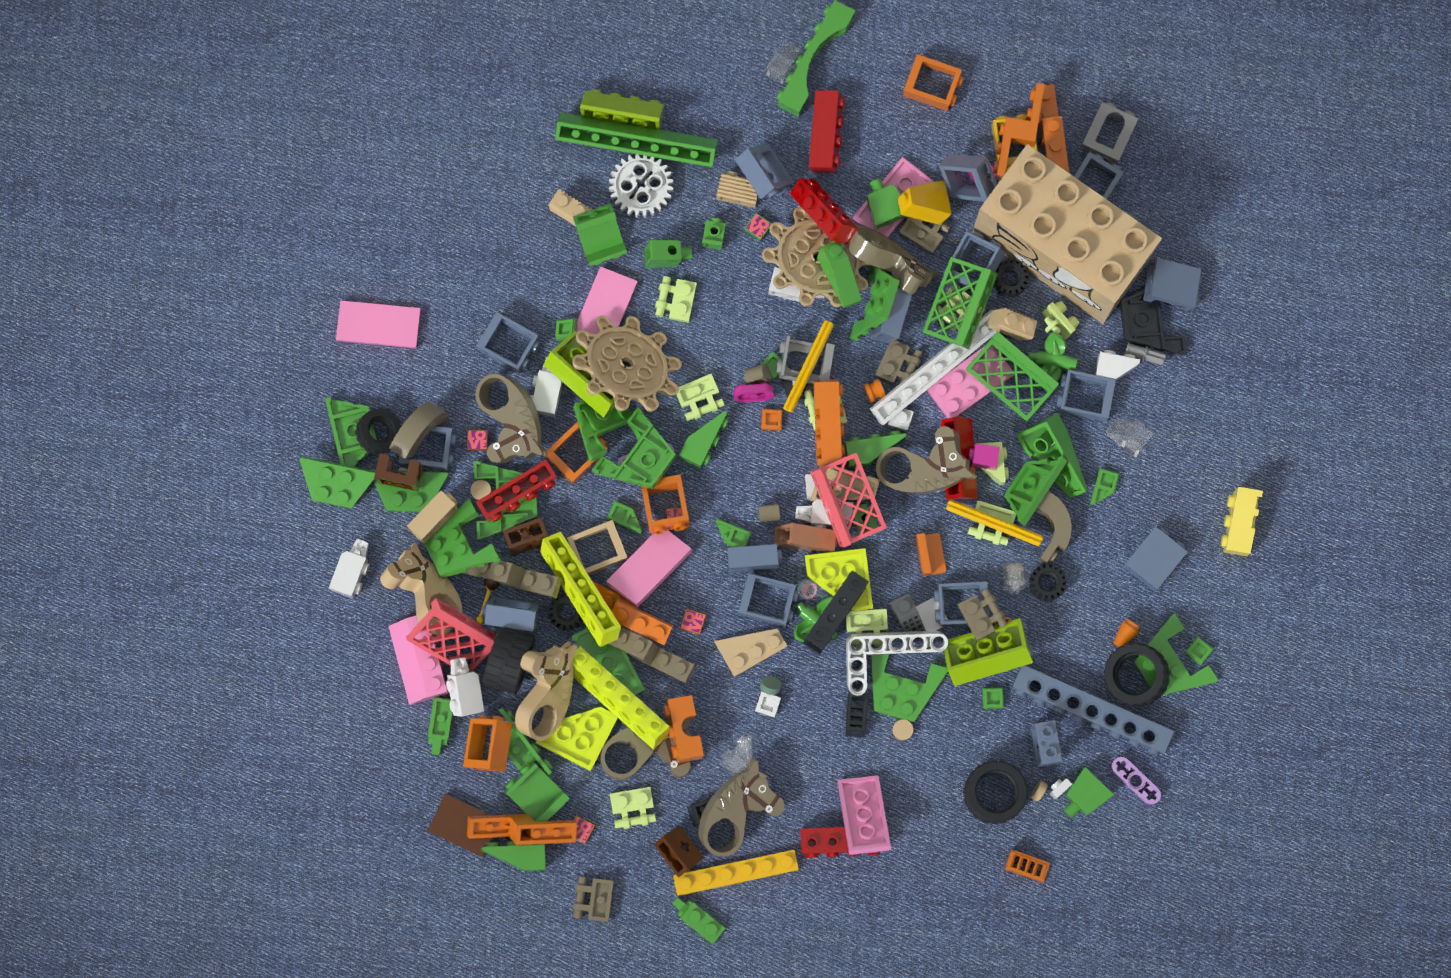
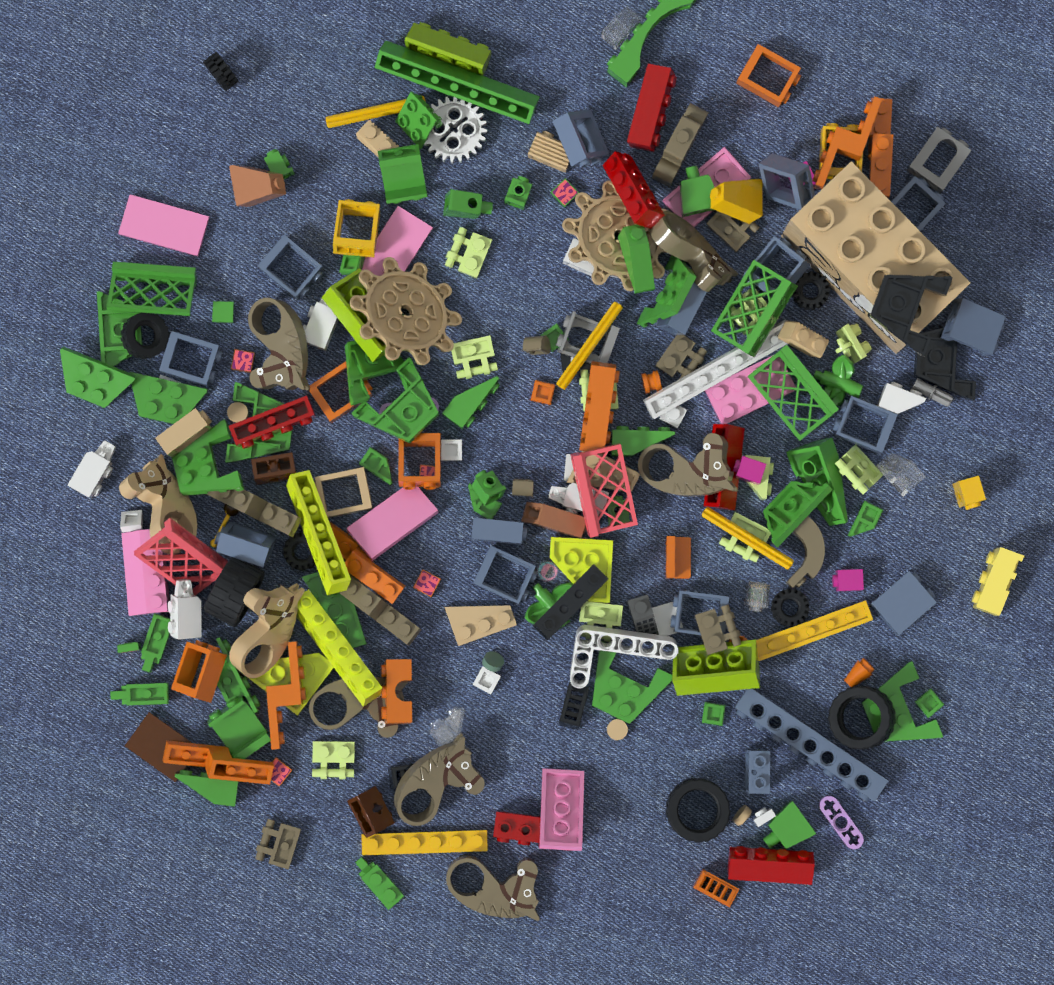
camera: 10 degrees right, 5 degrees up
(377, 373) = (153, 275): none -> bright green fence
(396, 611) = (131, 521): none -> white plate
(408, 168) = (220, 71): none -> black tyre
(410, 481) = (142, 378): reddish brown panel -> none
(415, 734) = (129, 647): none -> bright green tile
(416, 428) = (182, 339): dark tan arch -> none
(436, 777) = (142, 694): none -> bright green hinge
(450, 397) = (223, 312): none -> bright green tile
(461, 270) = (255, 185): none -> nougat slope
(479, 248) = (278, 163): none -> bright green brick
(563, 181) = (365, 113): none -> yellow axle
(564, 311) = (351, 246): none -> yellow window
(576, 752) = (285, 695): none -> orange bracket
(605, 181) = (417, 119): none -> bright green hinge
(693, 489) = (451, 450): none -> white plate
(735, 518) = (488, 487): none -> bright green brick
(753, 393) = (529, 362): dark pink plate -> none
(827, 913) = (503, 899): none -> dark tan animal
(860, 162) = (679, 144): none -> dark tan brick
(1074, 600) = (813, 630): none -> yellow plate
(1076, 833) = (771, 865): none -> red brick
(1084, 432) = (862, 466): none -> yellowish green plate
(1097, 269) = (898, 304): none -> black wing
(1098, 546) = (848, 580): none -> dark pink brick
(1198, 441) = (969, 492): none -> yellow brick

